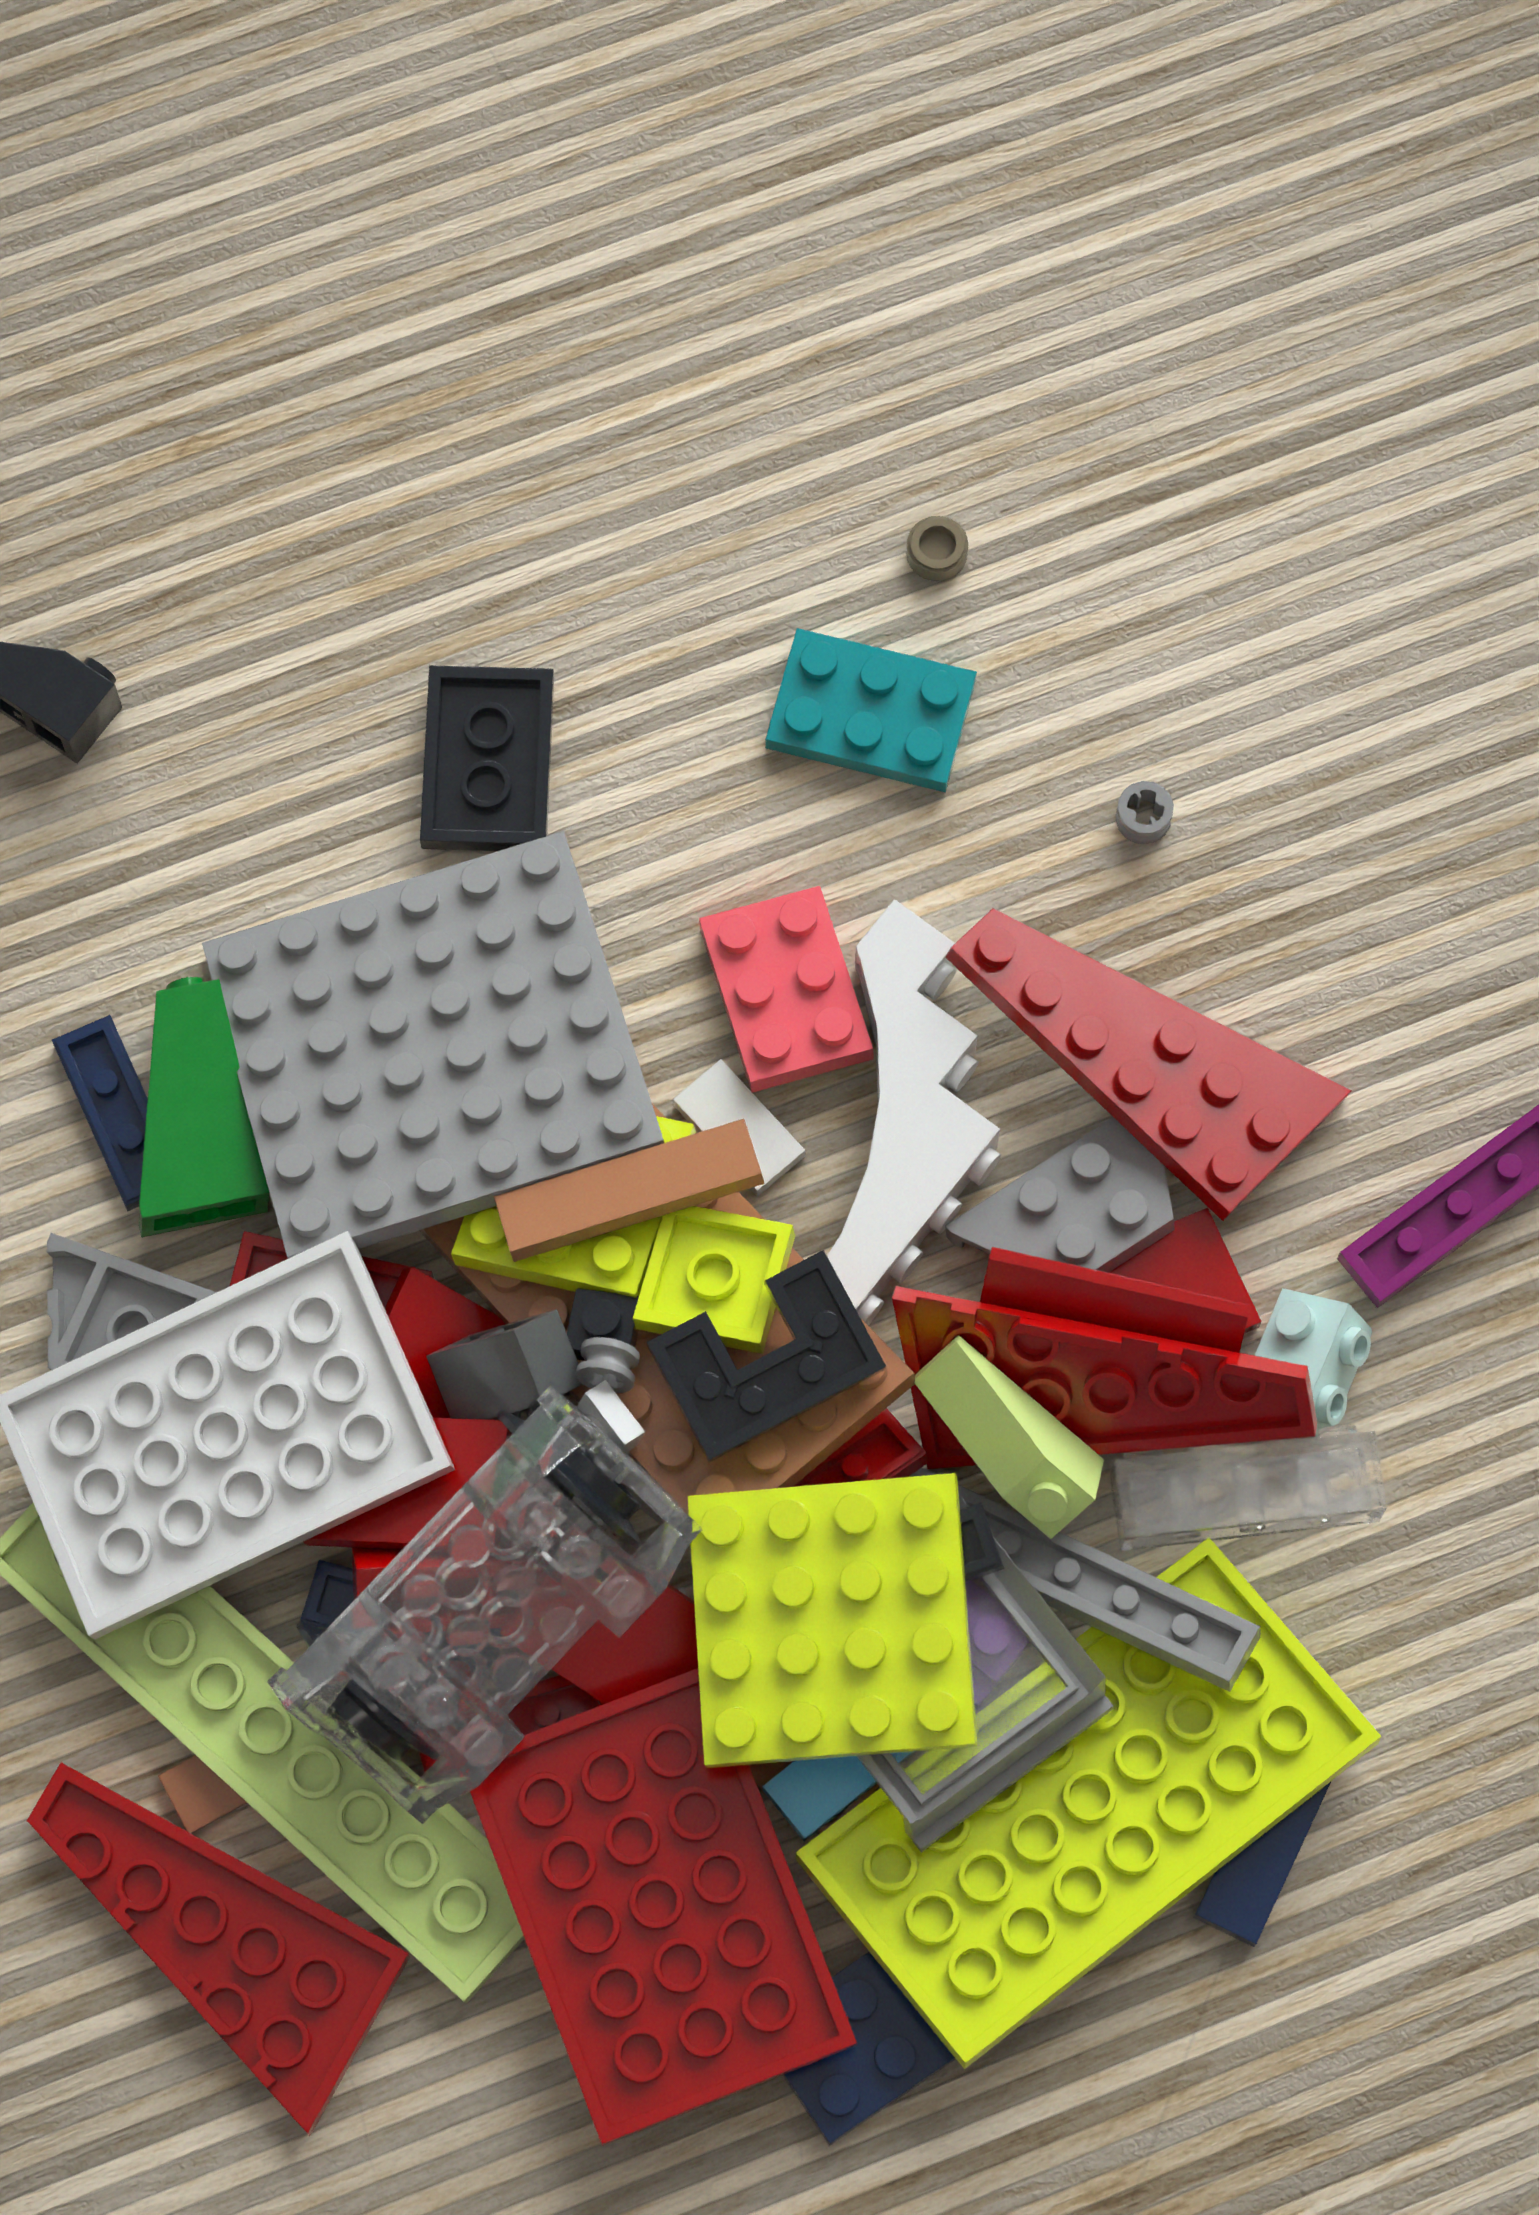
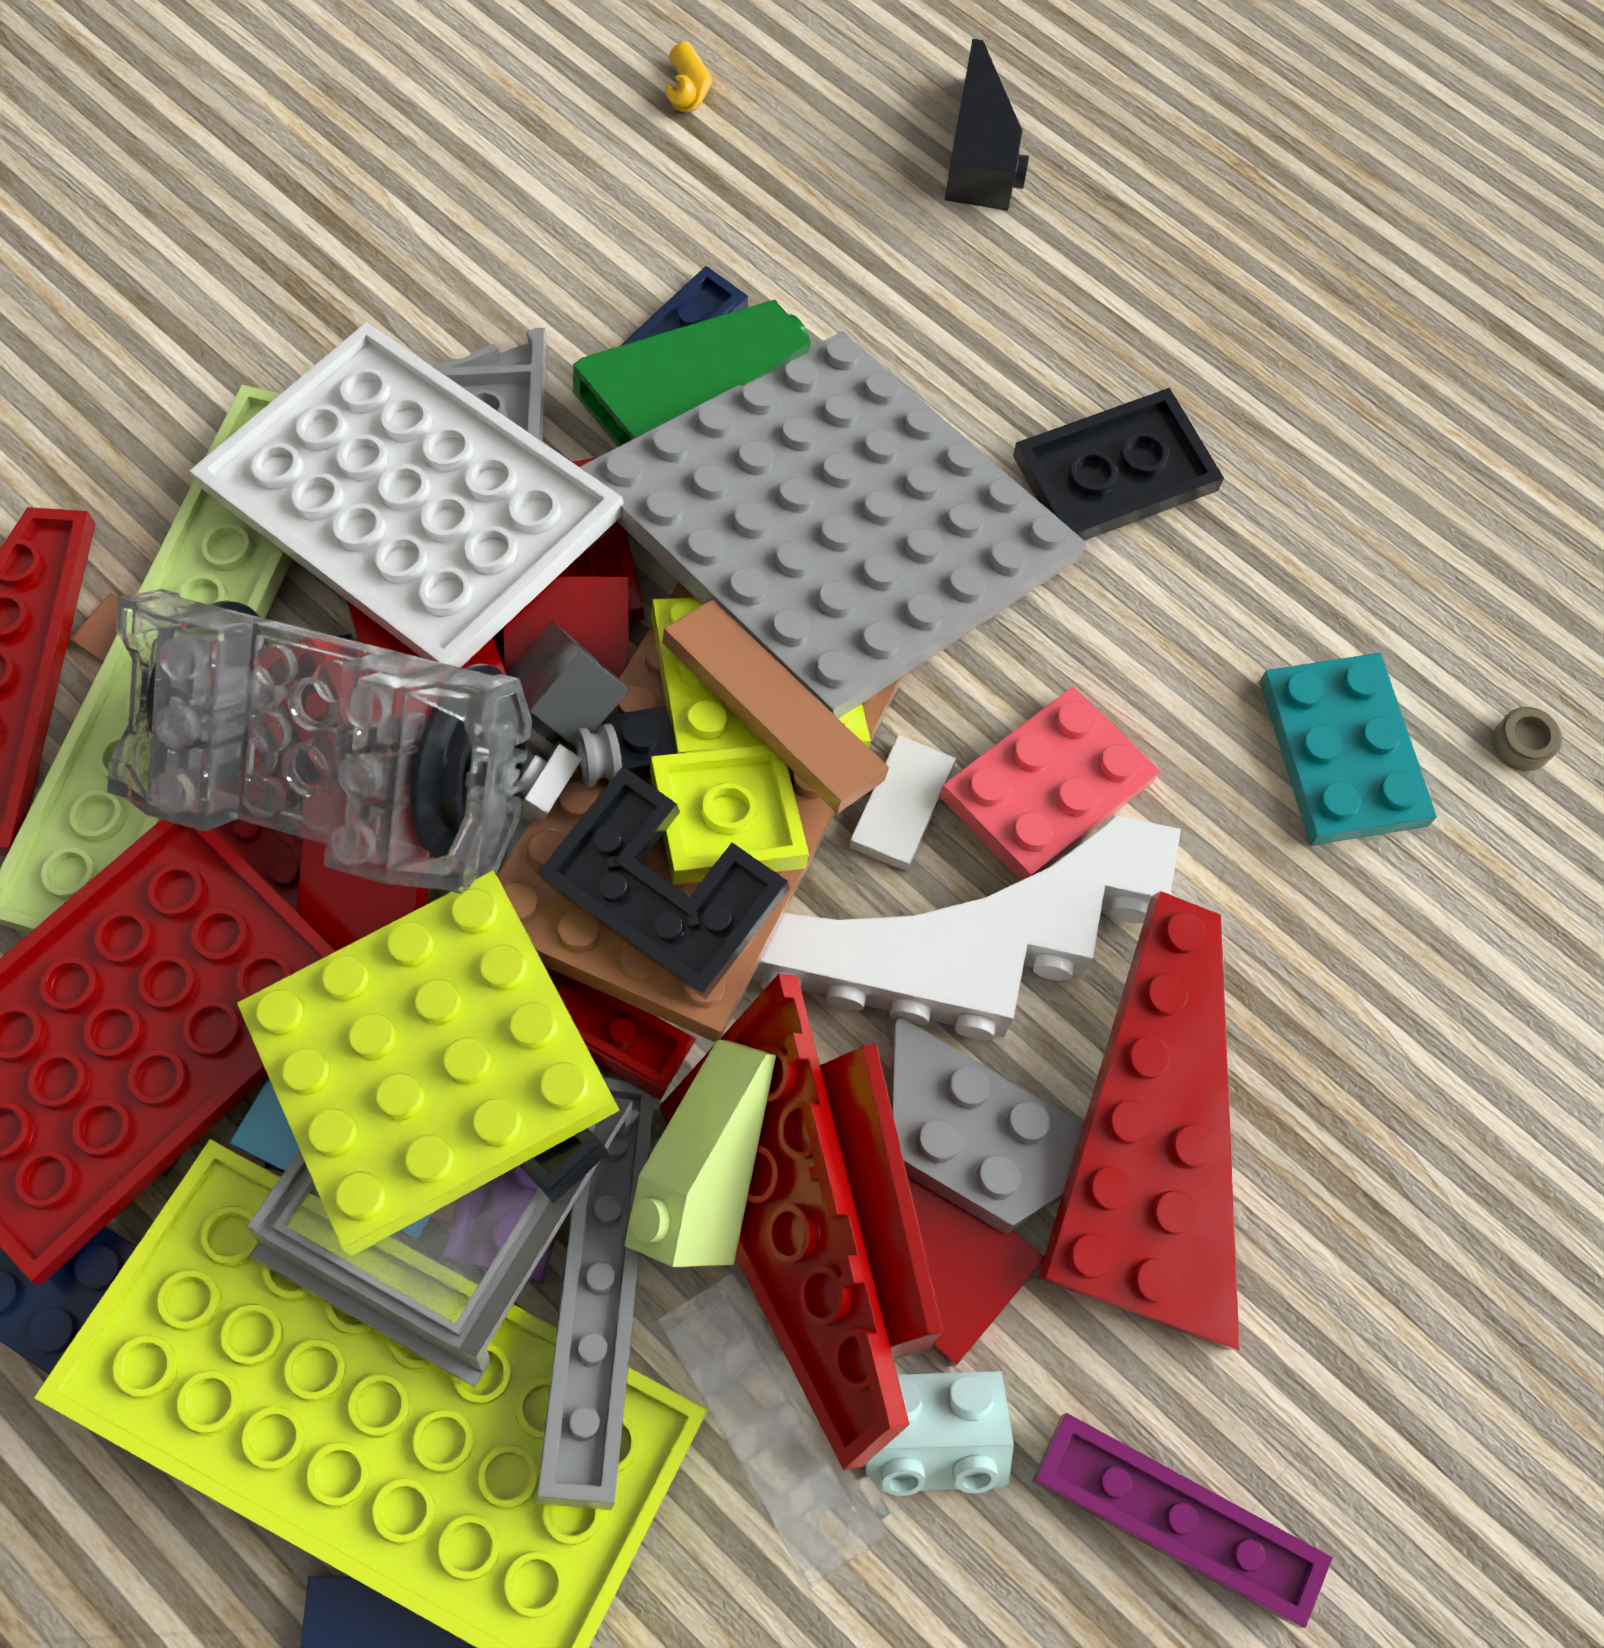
camera: 60 degrees right, 5 degrees down
(1162, 808) = (1407, 1007): light grey bush -> none

